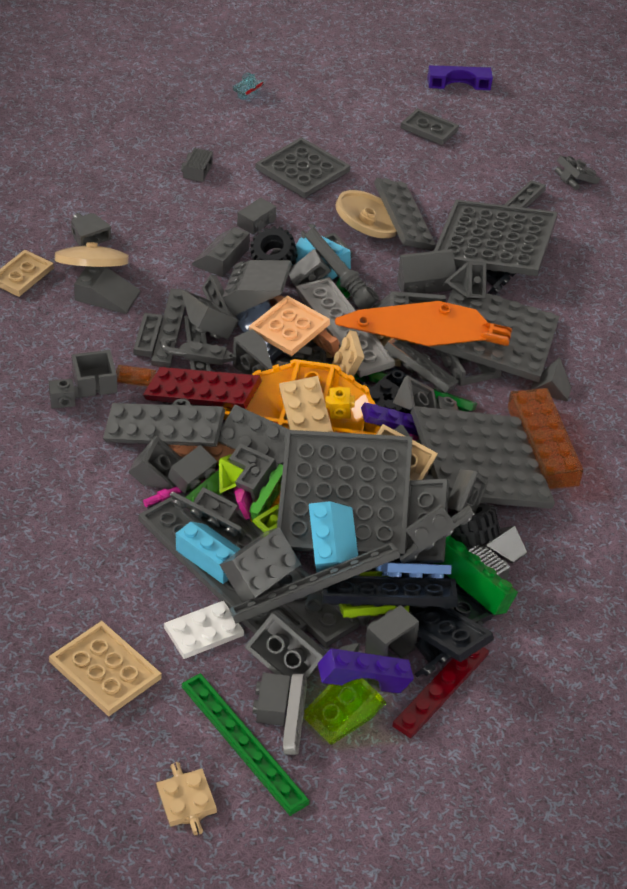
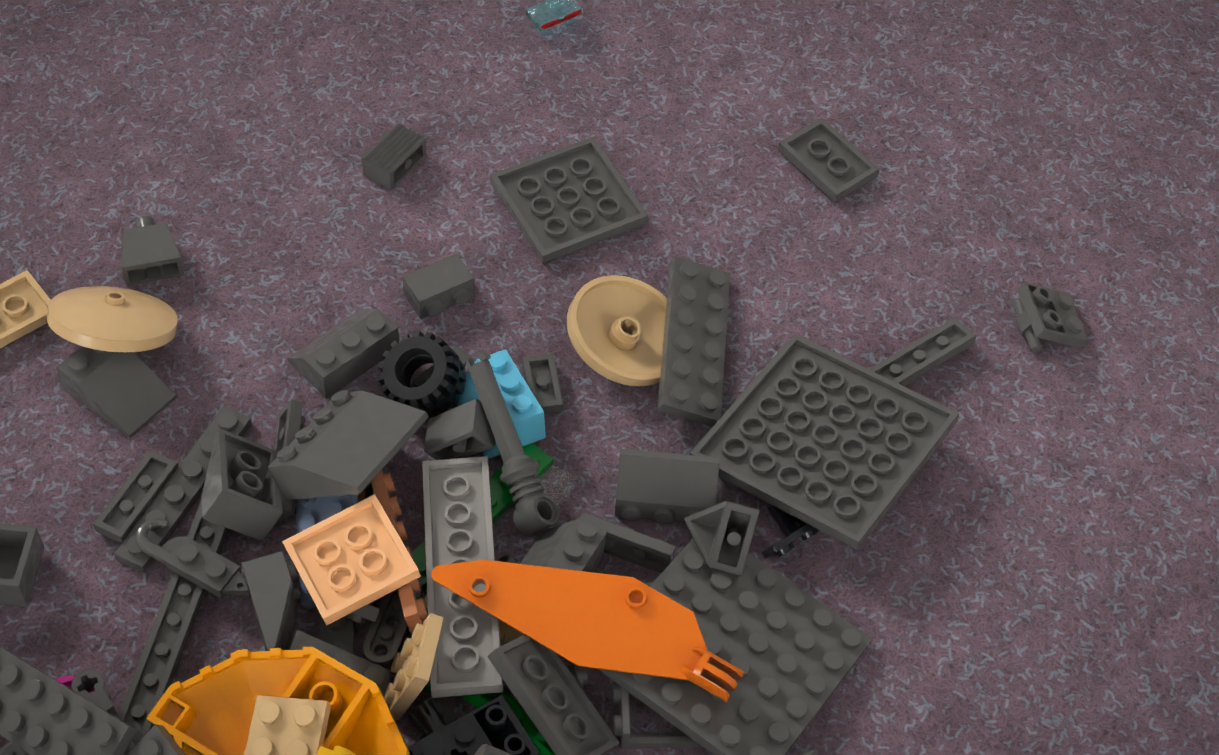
camera: 20 degrees right, 10 degrees up
(134, 375) = (74, 578): clear orange plate -> none
(203, 387) = (149, 652): dark red plate -> none
(478, 77) = (899, 56): dark purple arch -> none

